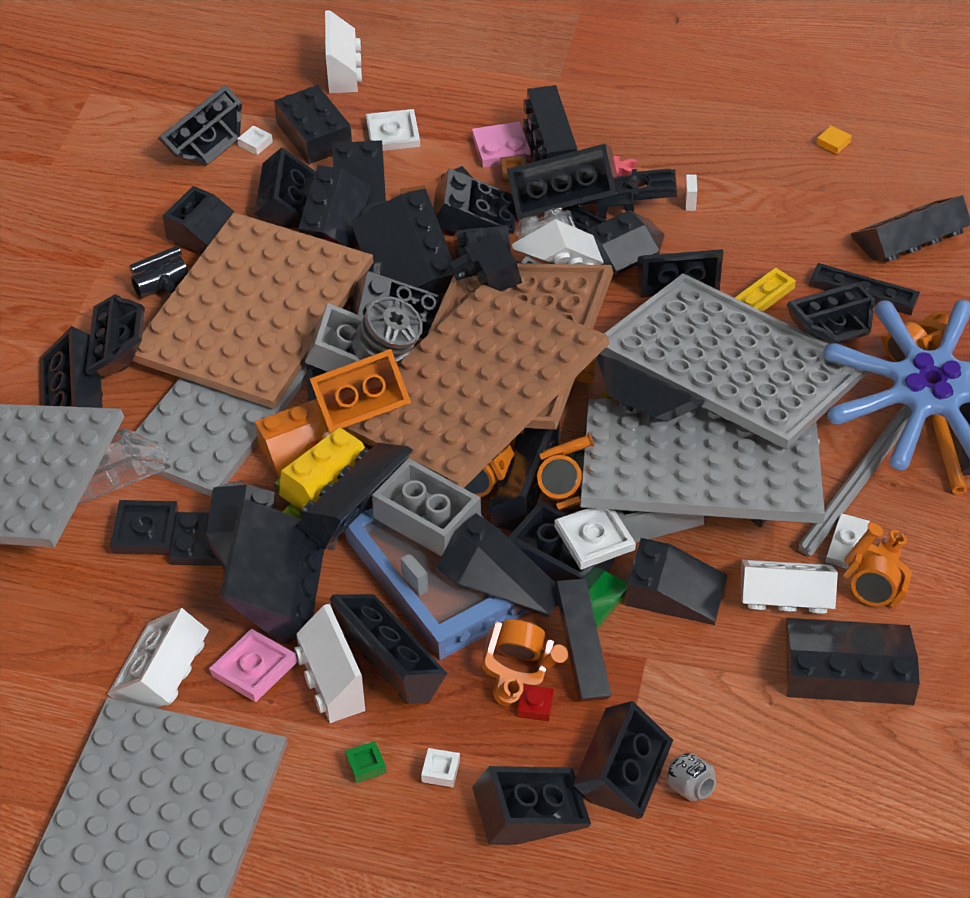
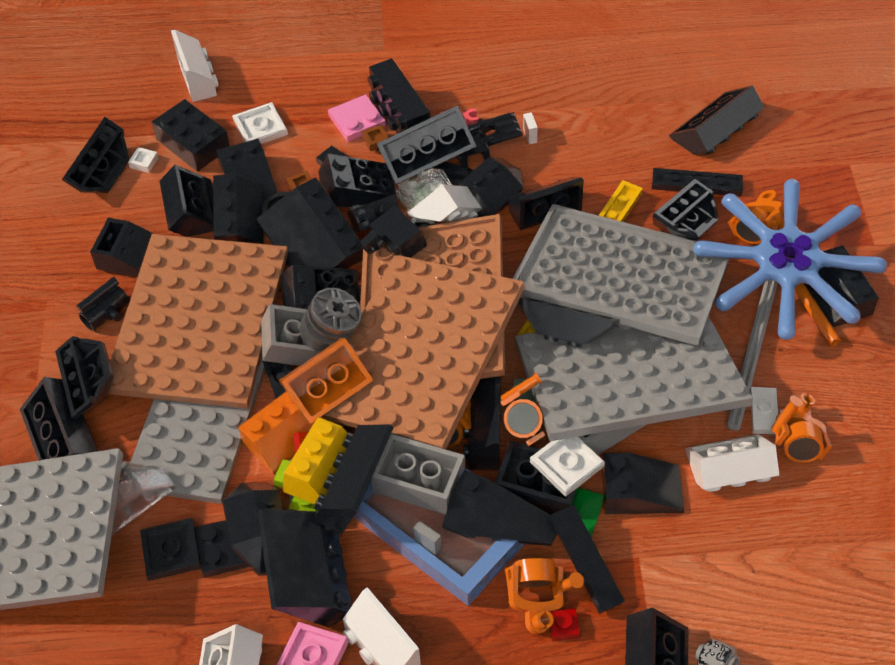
camera: 15 degrees left, 5 degrees up
(388, 646) = (426, 609): black slope -> none
(834, 139) = (626, 55): light orange tile -> none
(851, 661) = (806, 516): black slope -> none

